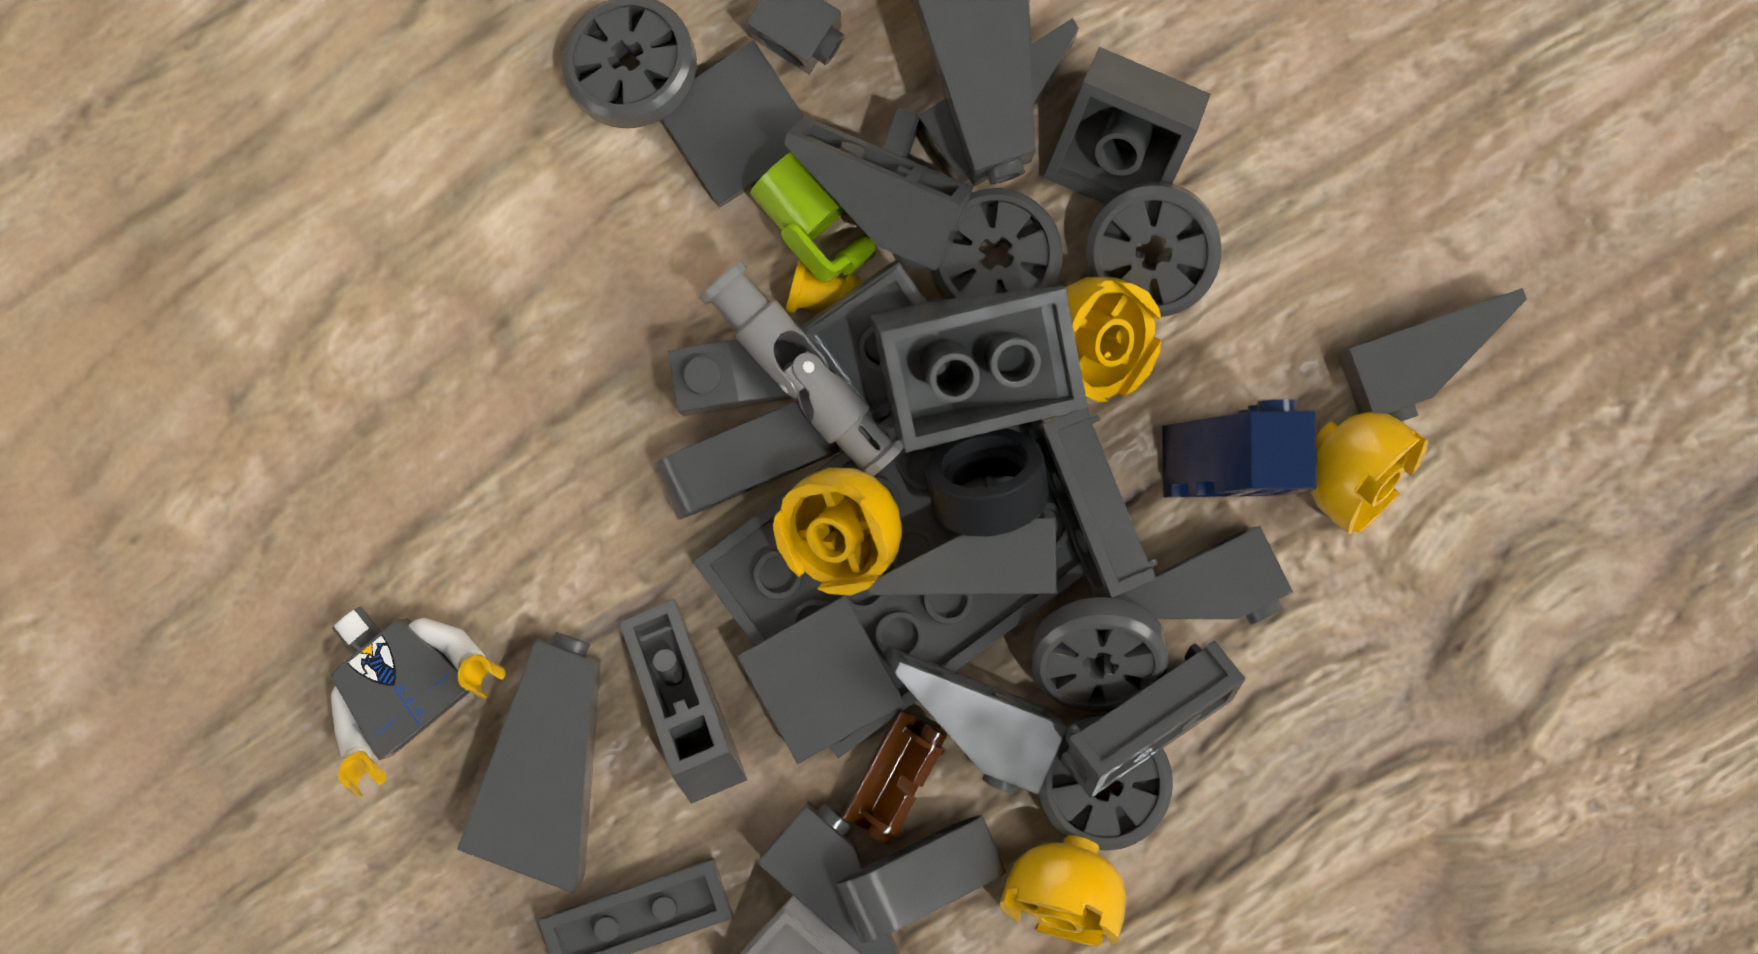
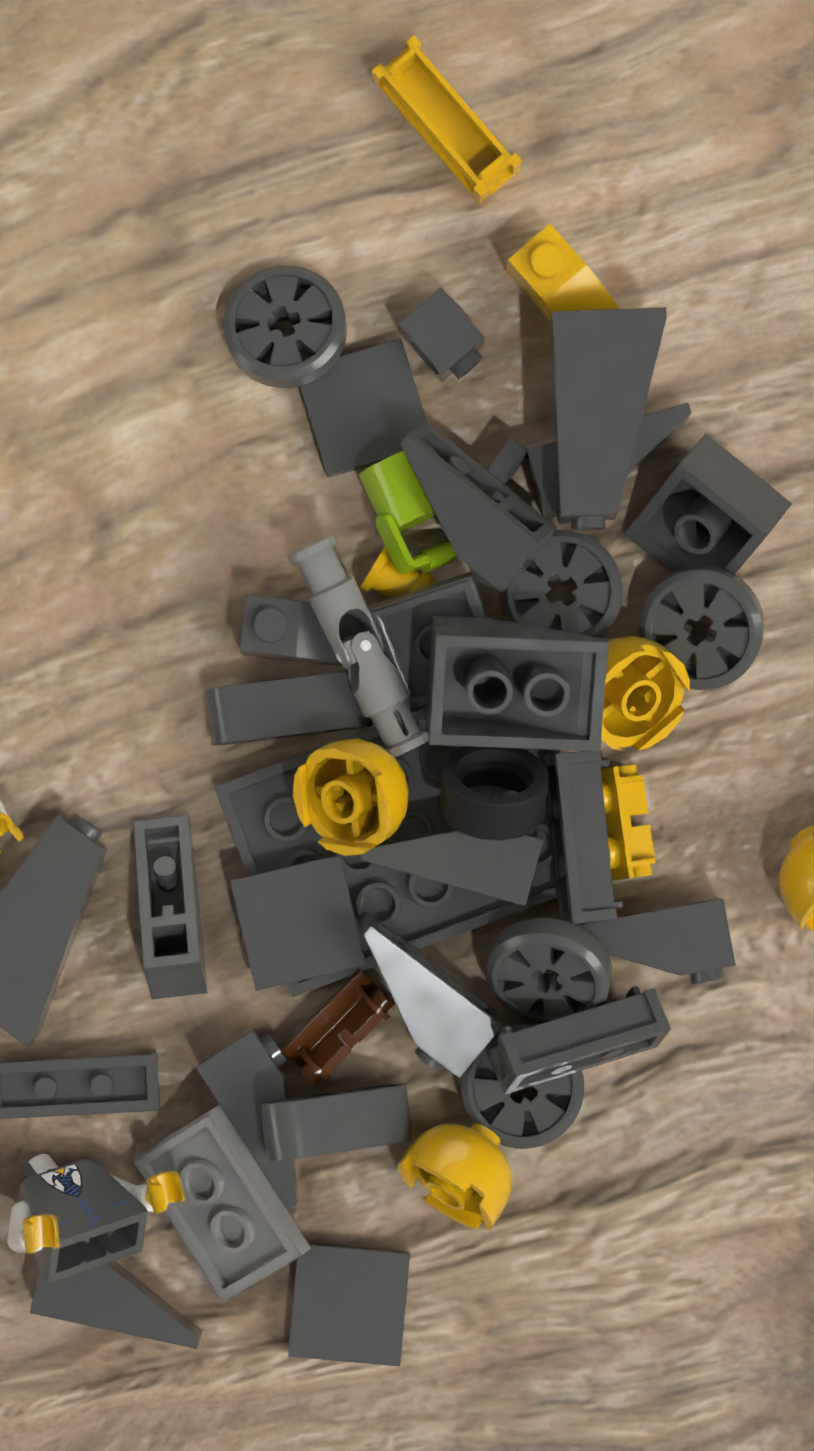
camera: 15 degrees right, 0 degrees up
(1144, 498) = (629, 847): none -> yellow hinge
(1242, 454) = (722, 830): dark blue wedge -> none

